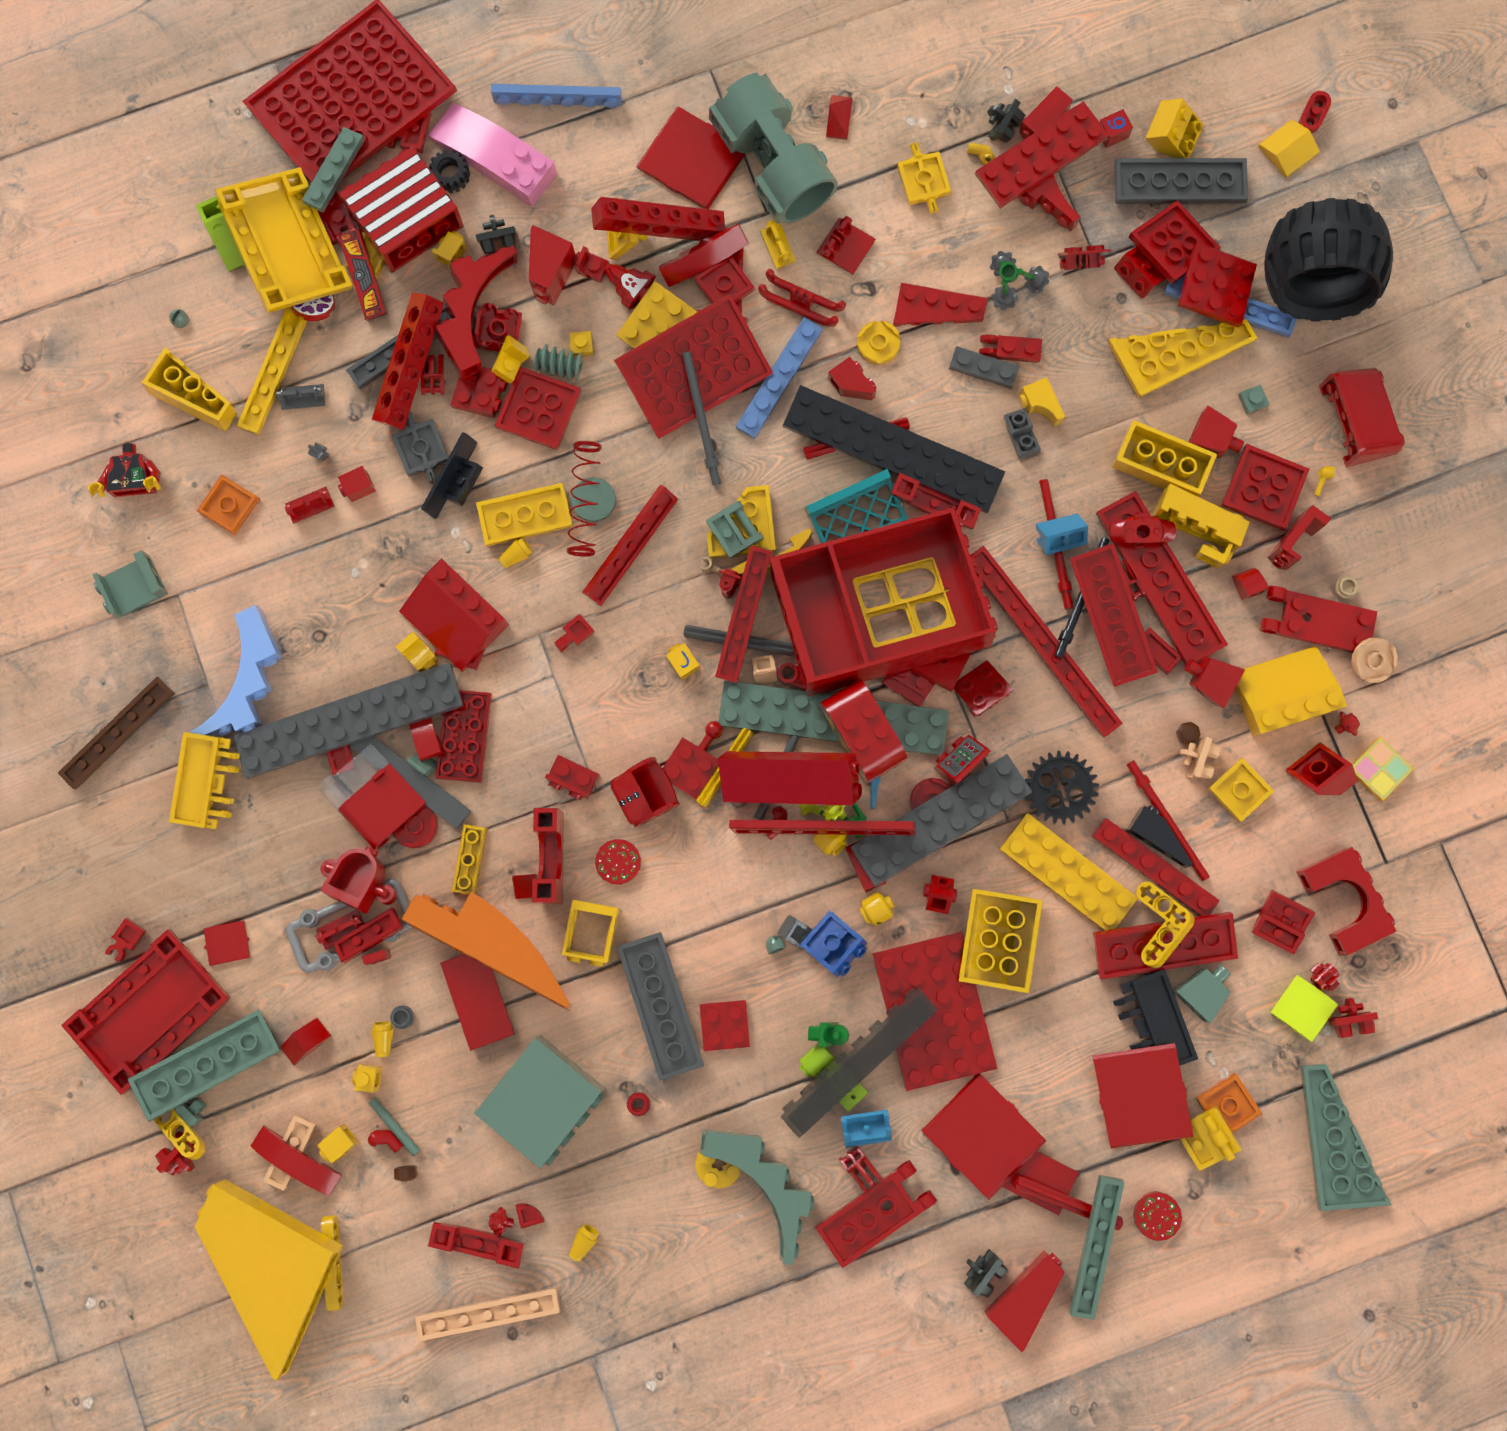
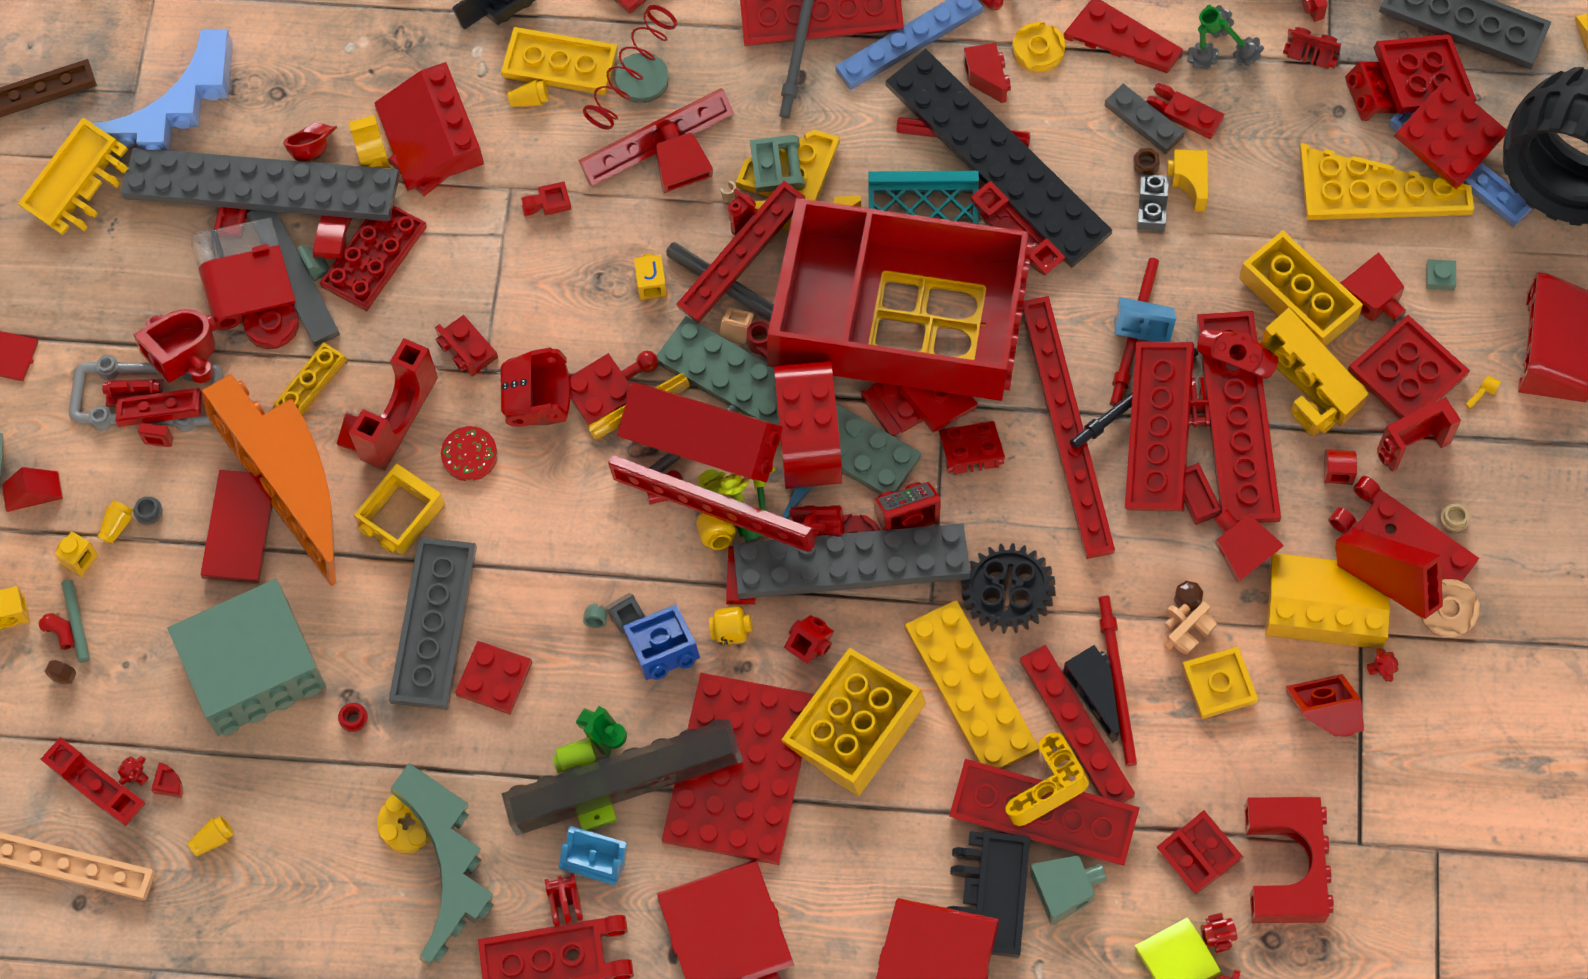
camera: 25 degrees right, 15 degrees down
(367, 667) = (309, 142): none -> red cap
(658, 557) = (680, 159): none -> red torso
(901, 802) = (822, 519): none -> red hips
(1002, 403) = (1146, 161): none -> reddish brown tile
(1328, 652) = (1394, 569): none -> red slope
(1381, 769) = (1401, 733): tile -> none

